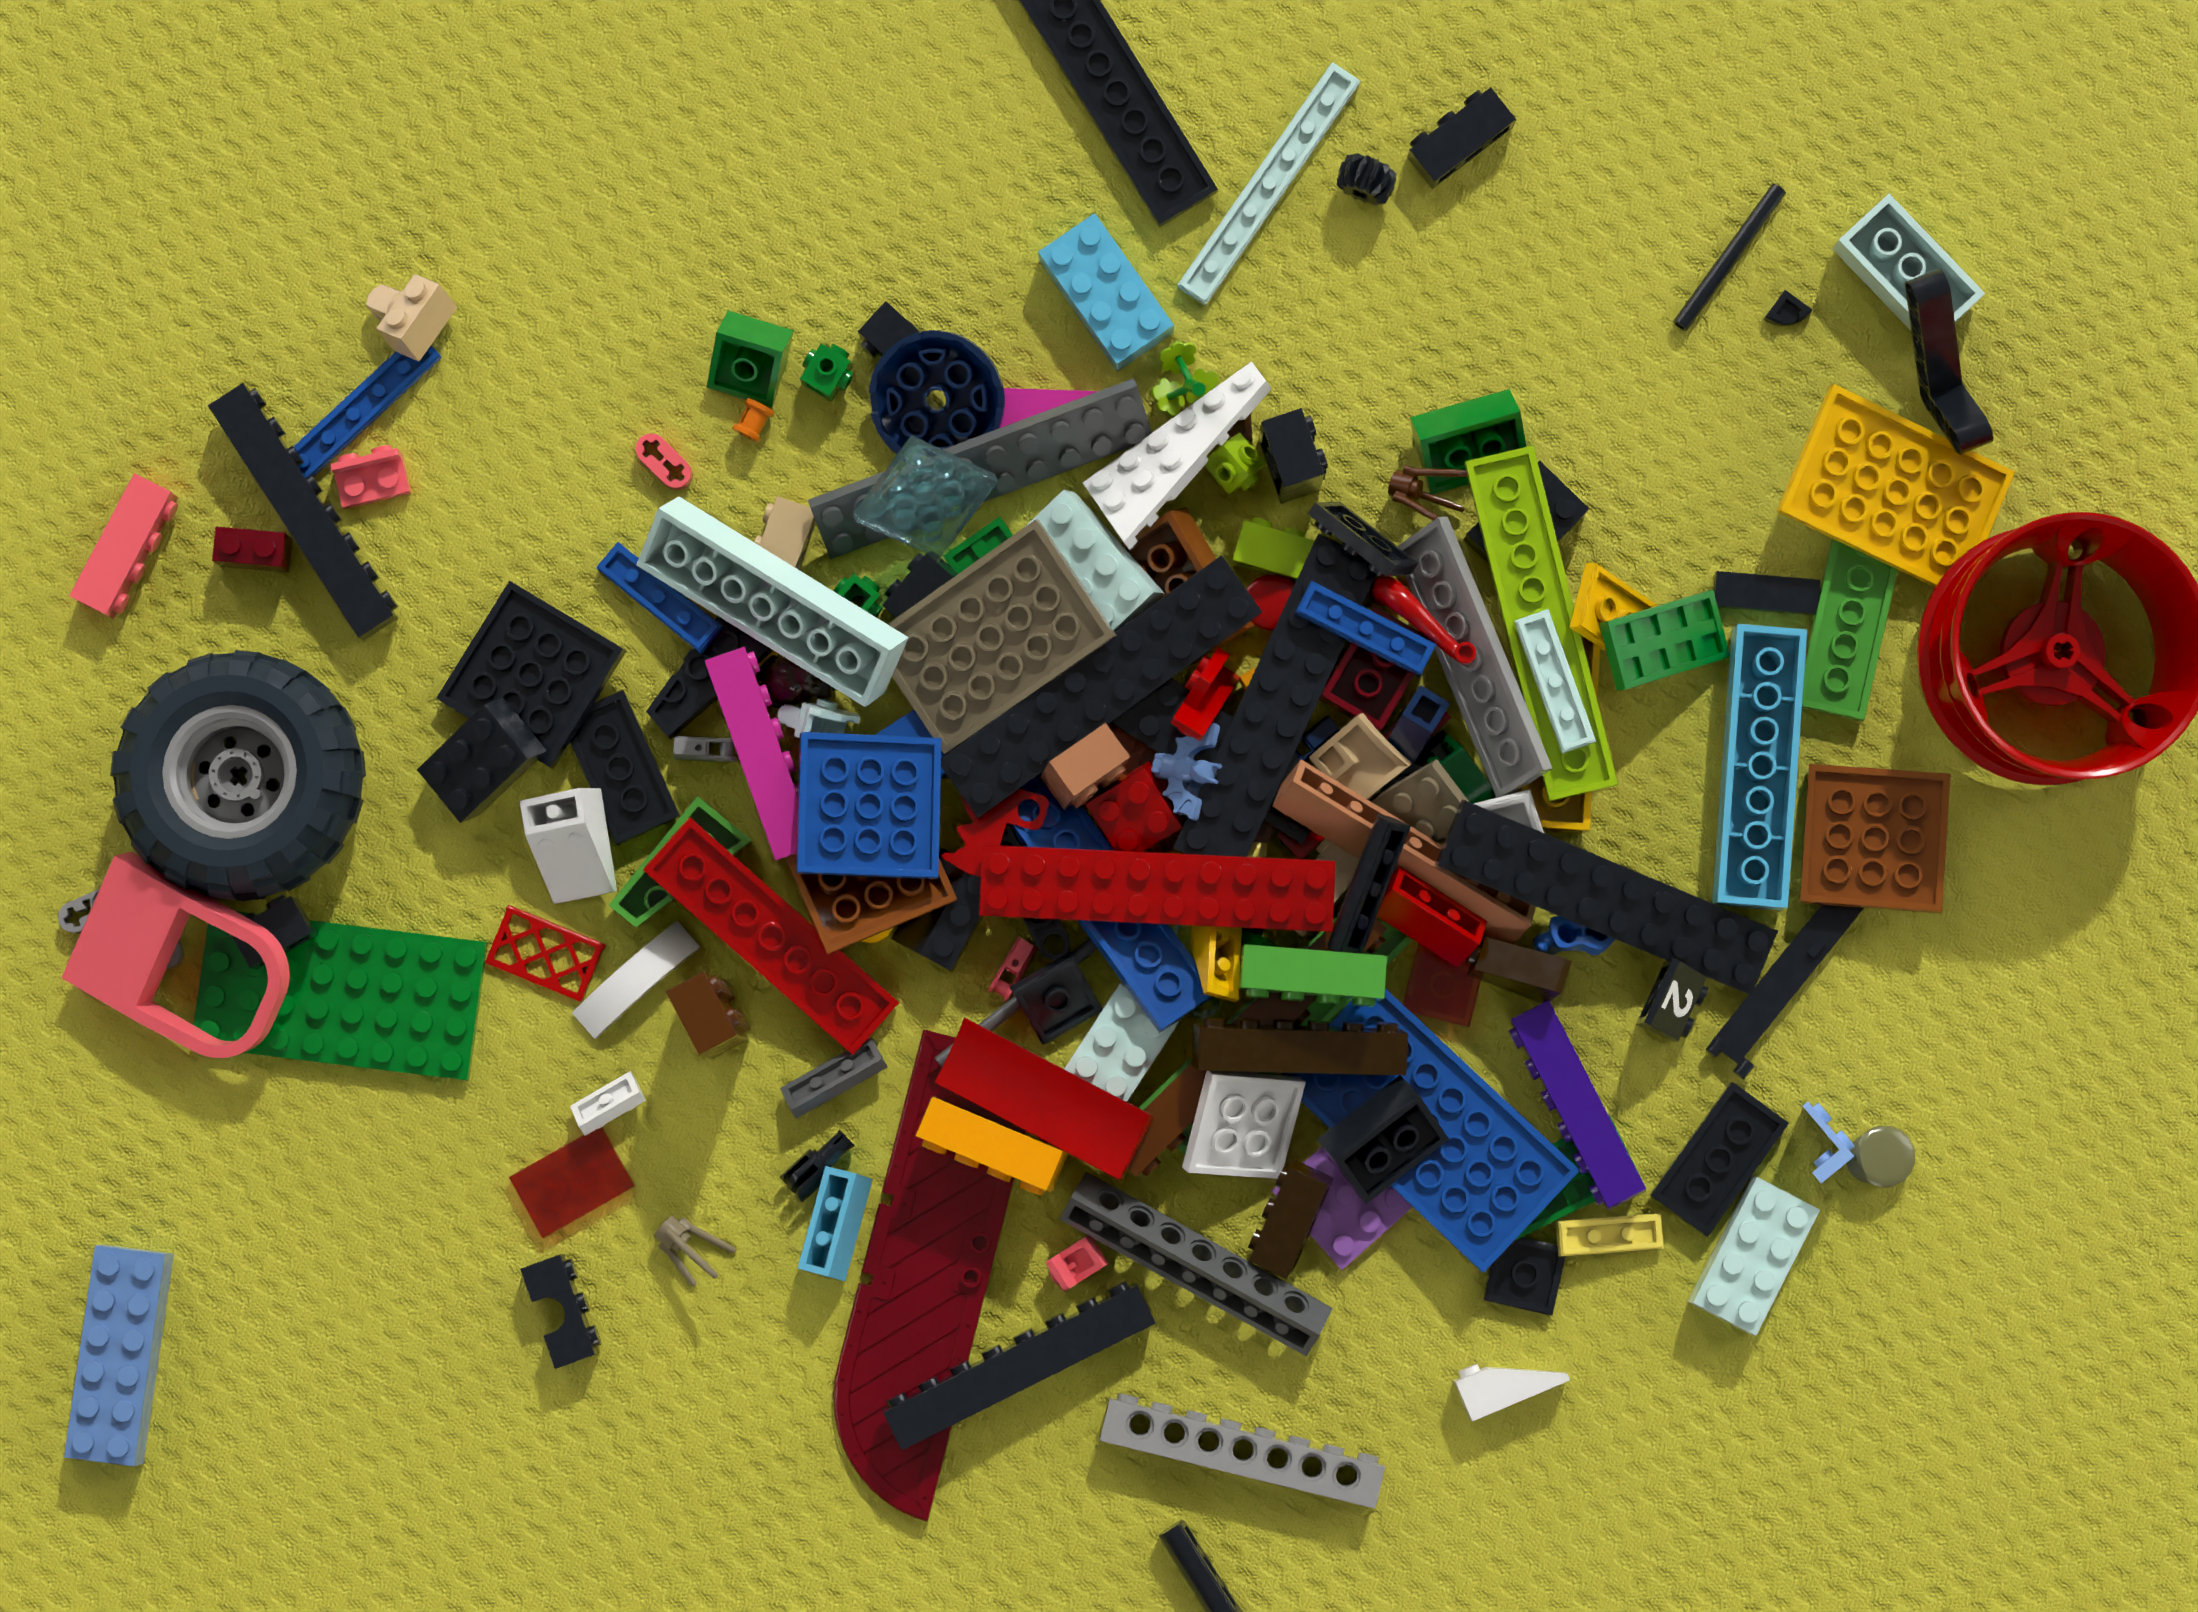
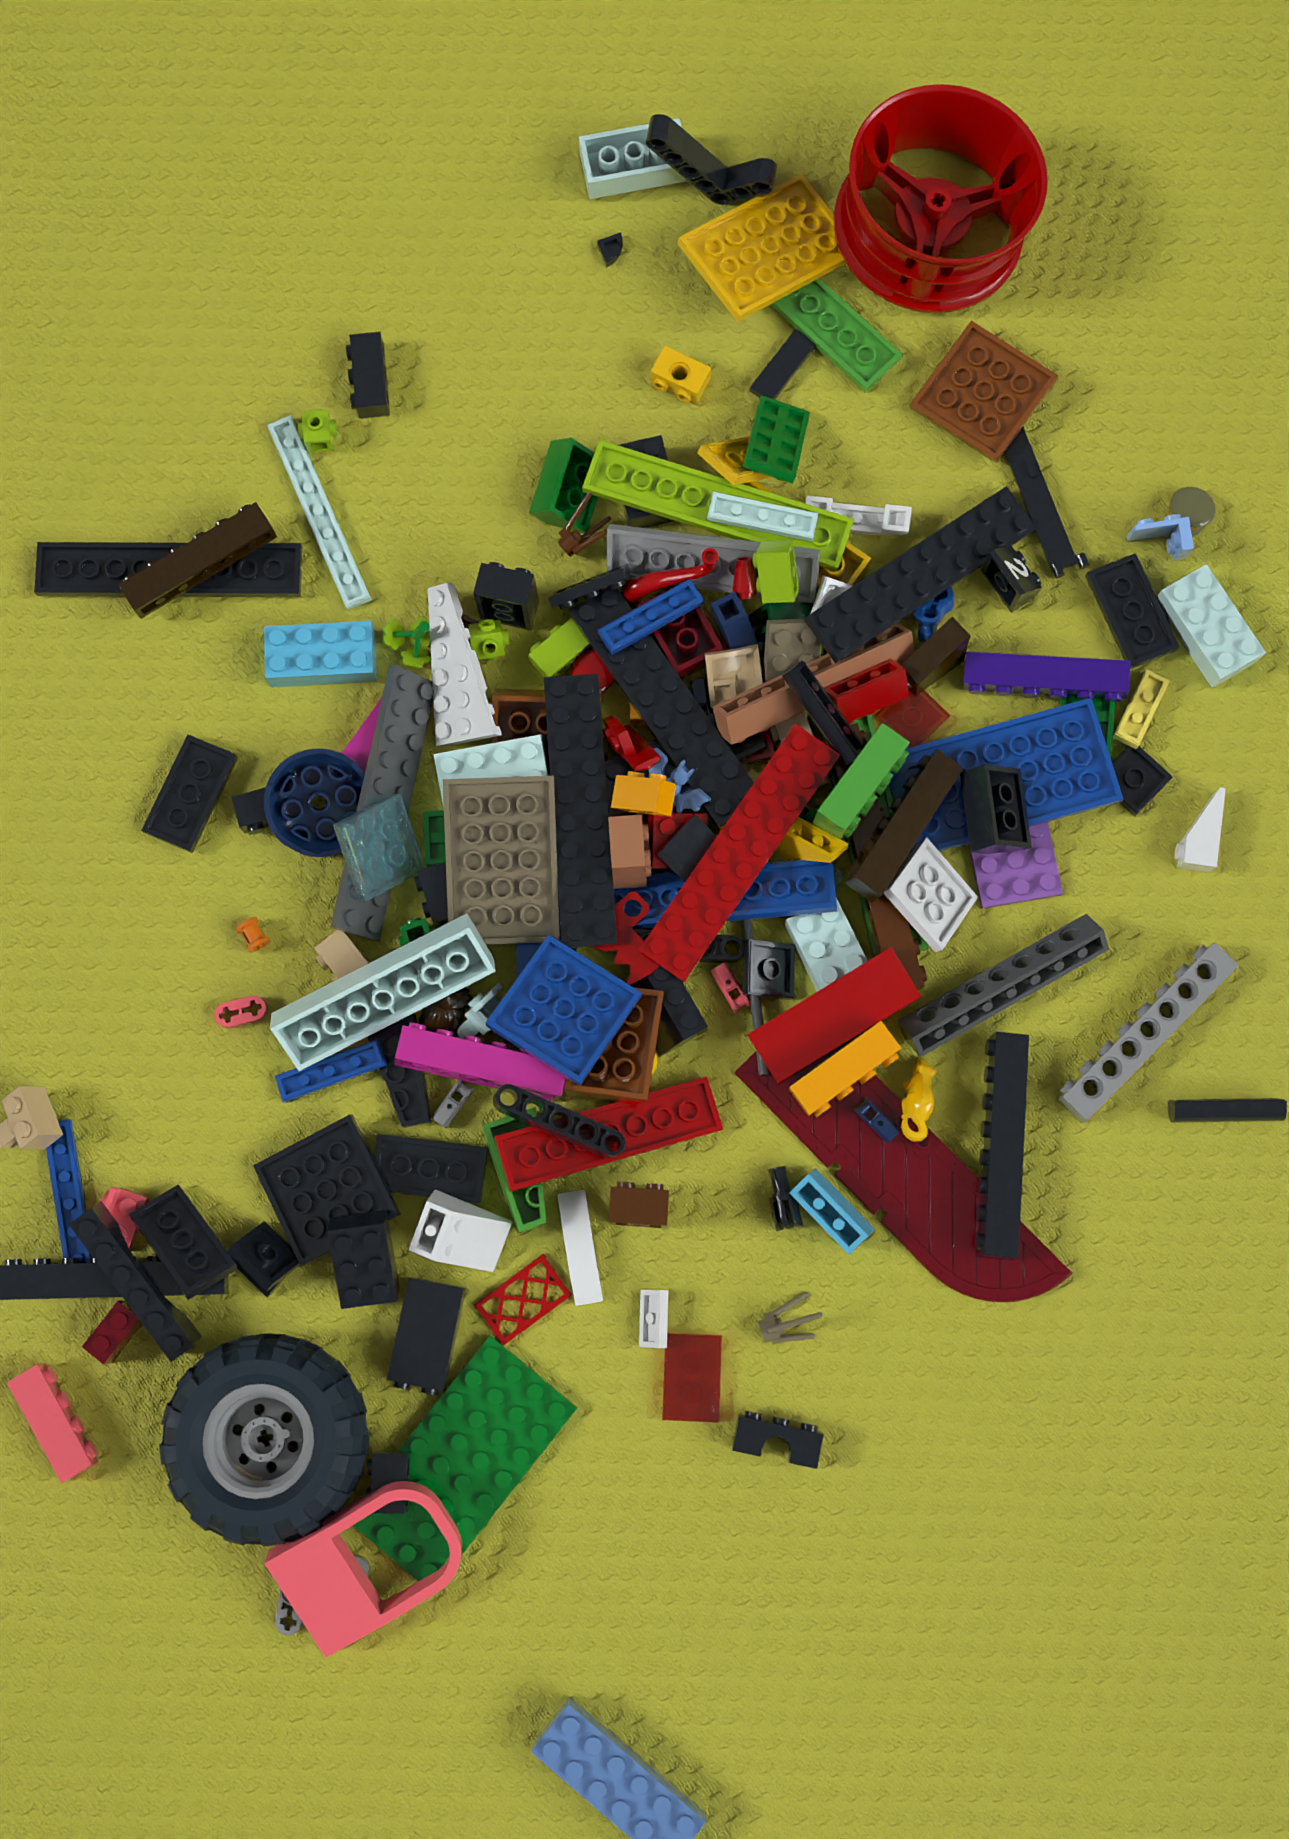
camera: 60 degrees left, 5 degrees down
(295, 584) = (159, 1316): none -> black arch
(385, 560) = (183, 1242): none -> black plate
(421, 654) = (263, 1258): none -> black bracket
(445, 875) = (426, 1335): none -> black brick
(749, 358) = (209, 911): green slope -> none
(754, 891) = (545, 1123): none -> black beam
(827, 383) = (252, 865): green brick -> none
(833, 1078) = (731, 1152): dark grey plate -> none
(864, 252) = (189, 793): none -> black plate
(961, 1219) = (880, 1123): none -> dark blue bar
(1010, 1247) = (919, 1100): none -> yellow animal
(1076, 1263) = (955, 1064): coral bracket -> none
(1124, 91) = (197, 560): none -> dark brown brick
(1128, 828) = (687, 847): none -> black tile
(1154, 745) = (643, 795): none -> light orange brick
(1289, 1218) = (1011, 904): dark brown brick -> none
(1353, 134) = (317, 430): none -> lime brick
(1366, 179) = (356, 446): black gear -> none
(1471, 706) = (744, 578): none -> red cone
(1497, 736) = (776, 571): none -> lime brick
(1638, 788) = (867, 519): none -> white slope
(1688, 466) = (675, 363): none -> yellow brick
(1729, 257) = (554, 262): black piece -> none
(1759, 767) = (894, 433): medium azure brick -> none

